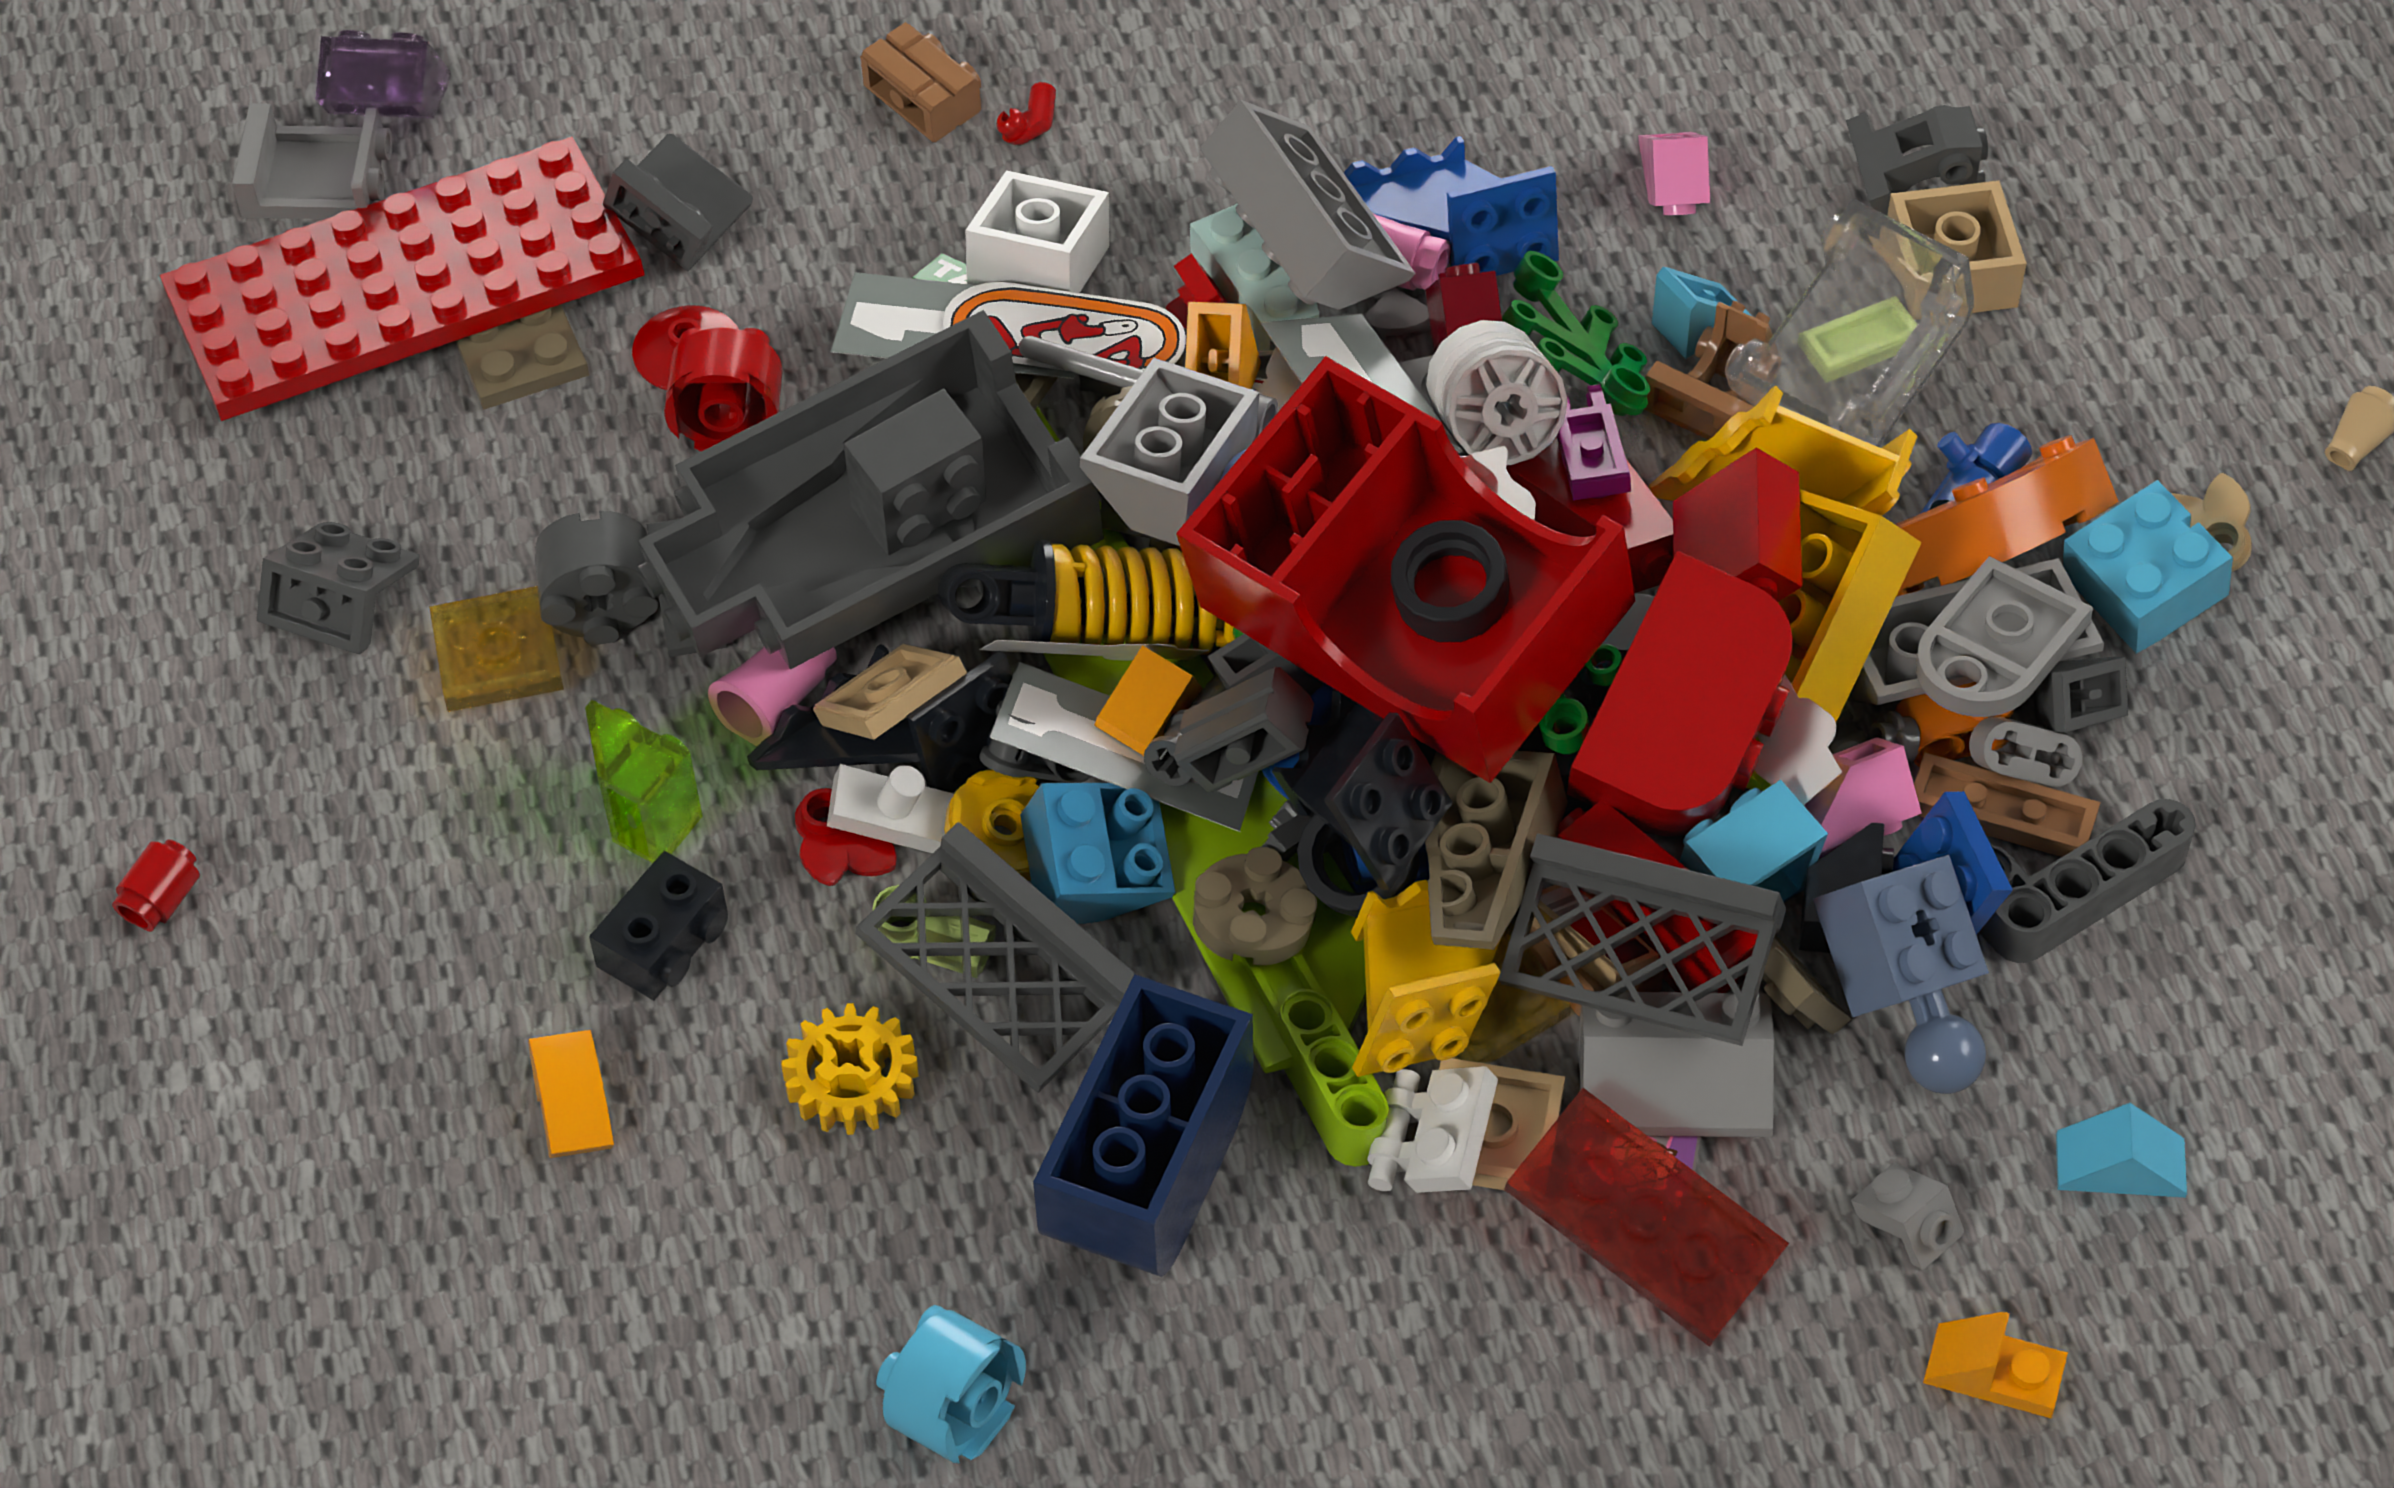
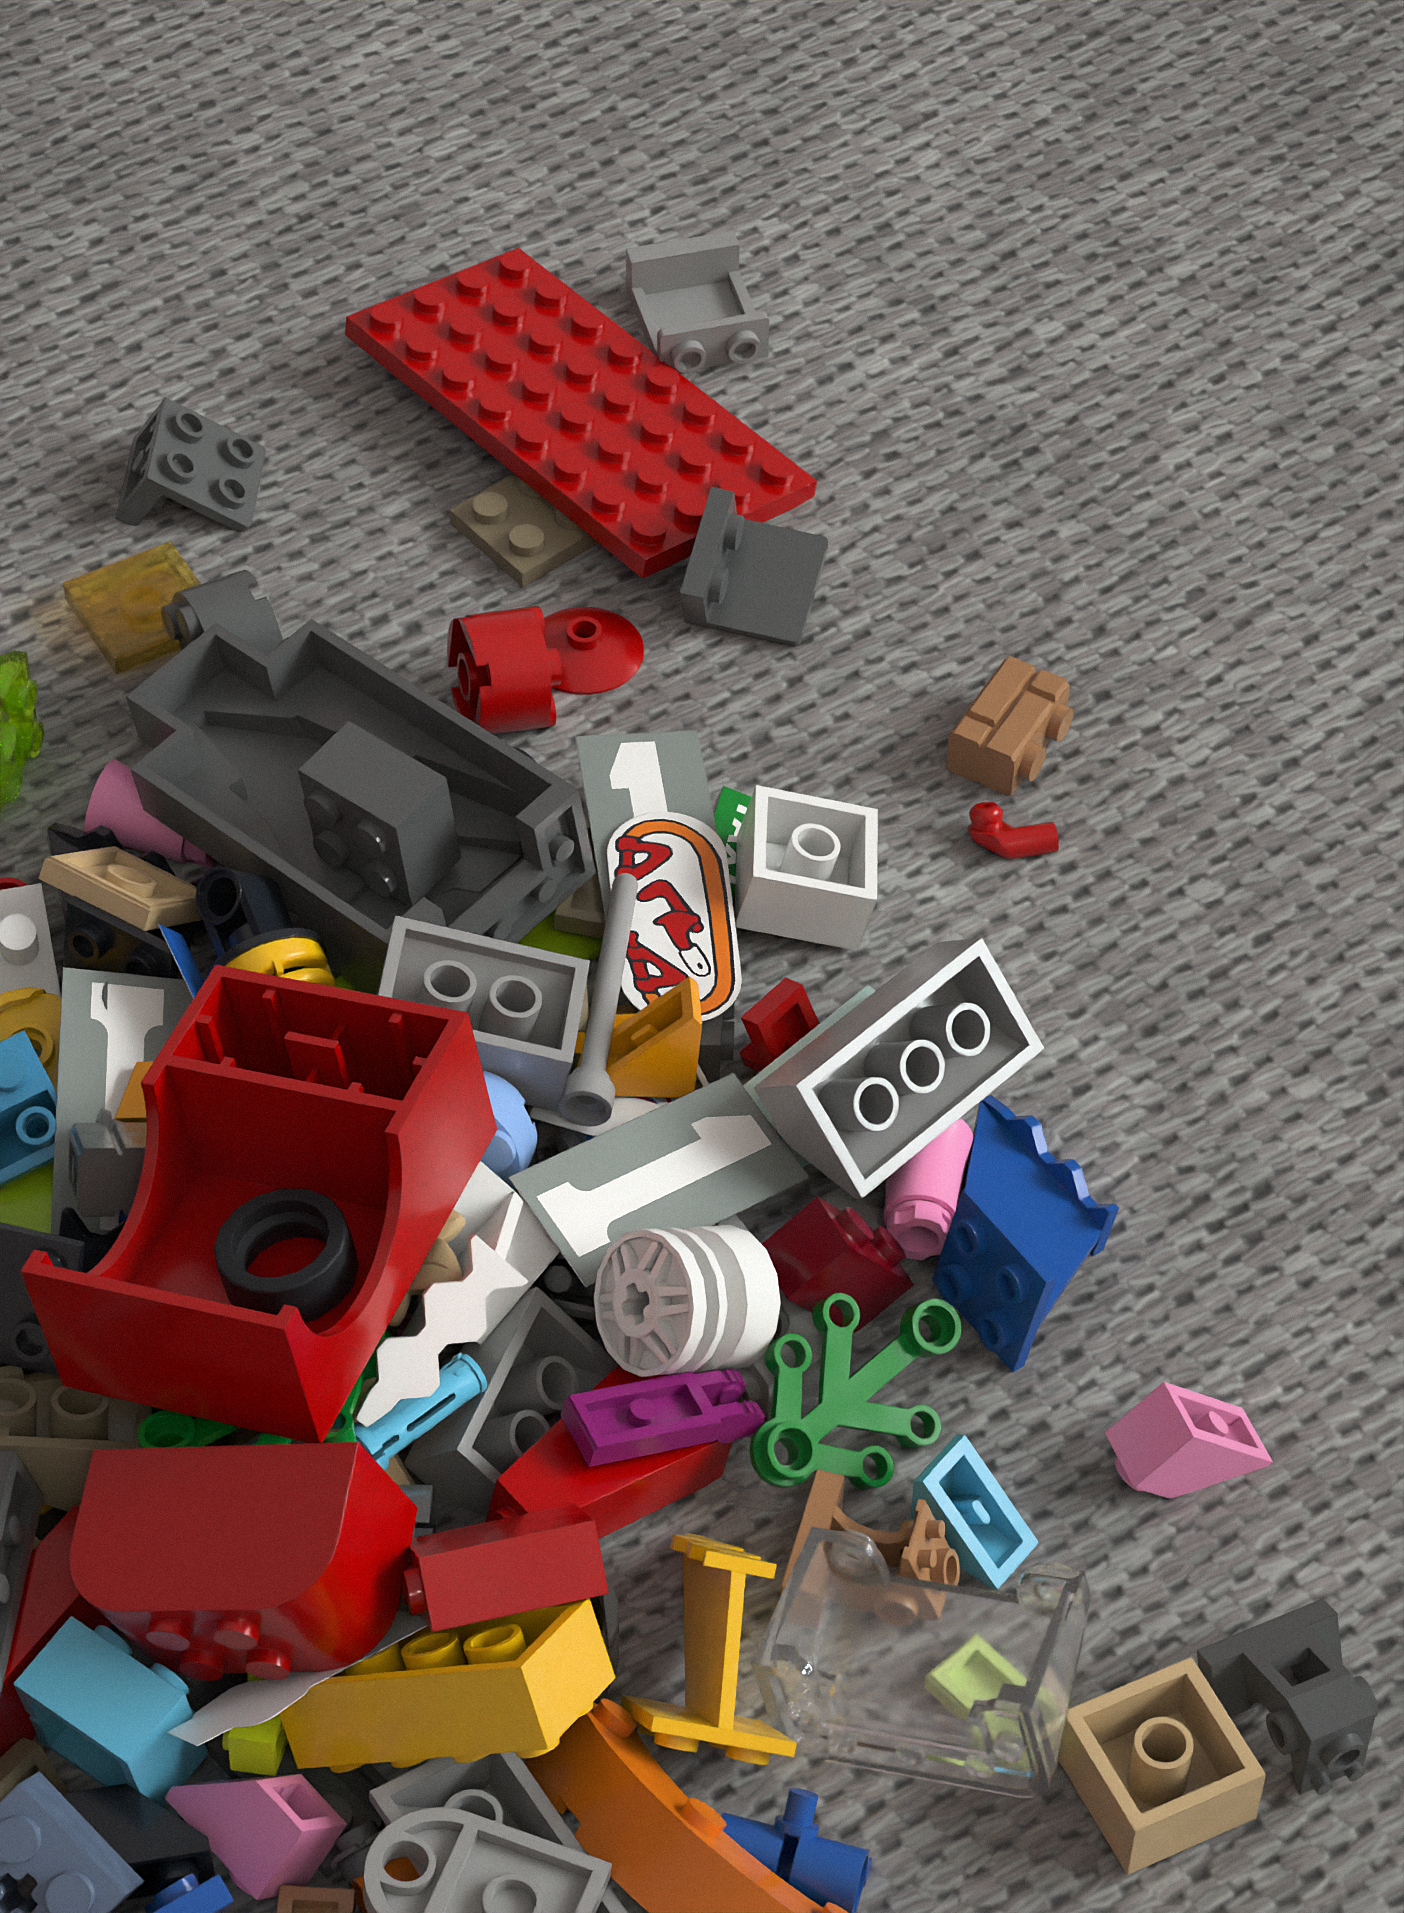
camera: 70 degrees right, 5 degrees down
(393, 74) = (810, 314): clear purple slope -> none

